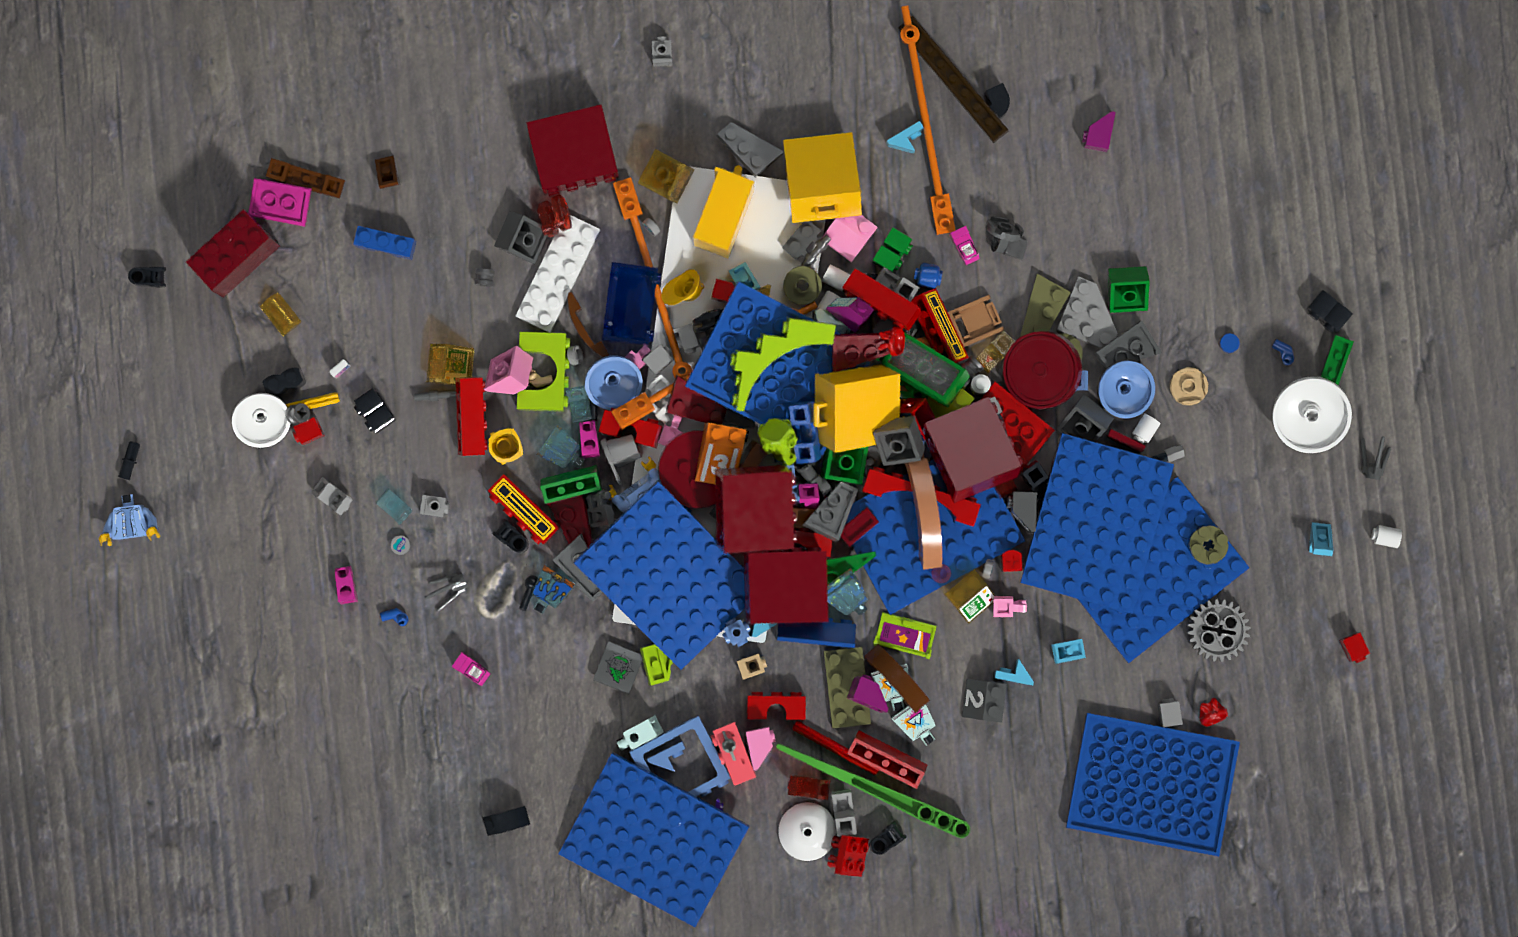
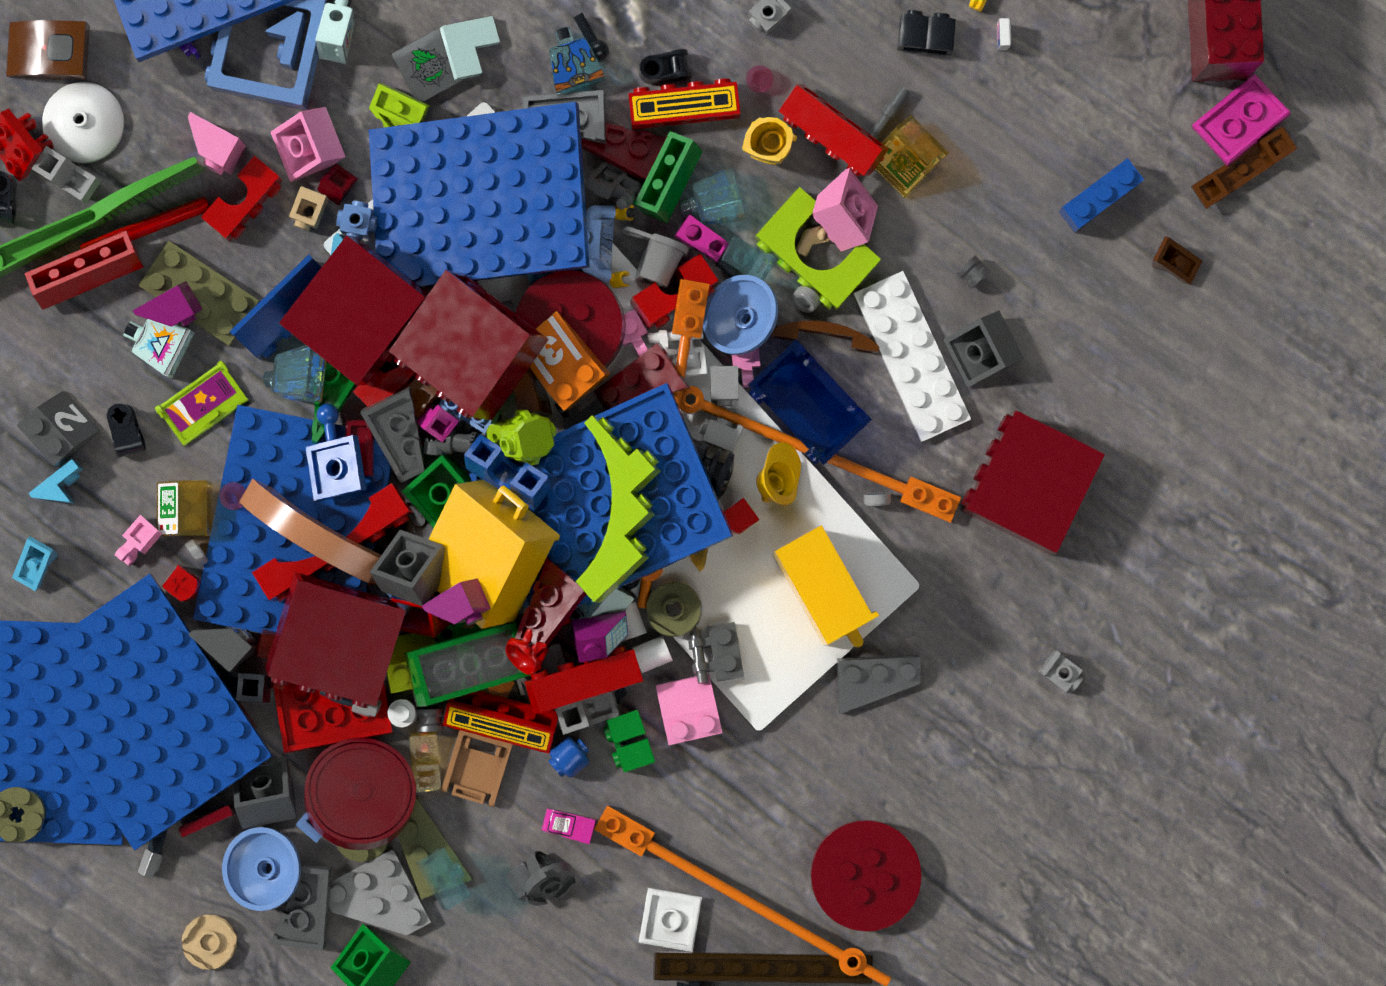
camera: 130 degrees right, 0 degrees up
(280, 314) = (1117, 21): clear yellow slope -> none
(474, 481) = (759, 79): none -> clear pink plate
(554, 216) = (976, 402): clear red brick -> none
(590, 659) = (462, 41): none -> light aqua tile
(666, 176) = (918, 560): clear yellow brick -> none
(716, 697) = (307, 143): none -> bright pink slope
(724, 663) = (336, 184): none -> dark red slope
(733, 753) = (231, 109): coral piece -> none
(744, 275) = (734, 552): medium azure slope -> none
(784, 883) = (48, 49): none -> reddish brown slope
(808, 787) = (126, 161): clear red brick -> none
(822, 177) = (772, 729): yellow container -> none
(858, 66) = (865, 875): none -> dark red brick
(879, 542) = (323, 455): none -> plate
(896, 395) = (460, 603): none -> magenta slope
(897, 678) = (161, 352): reddish brown slope -> none
(901, 140) = (742, 853): medium azure slope -> none
(916, 724) = (99, 335): light aqua torso -> none
(957, 661) = (125, 435): none -> black piece
(969, 150) = (670, 919): none -> white tile
(1049, 287) = (444, 878): none -> clear light blue brick
(1145, 429) = (201, 853): white brick -> none

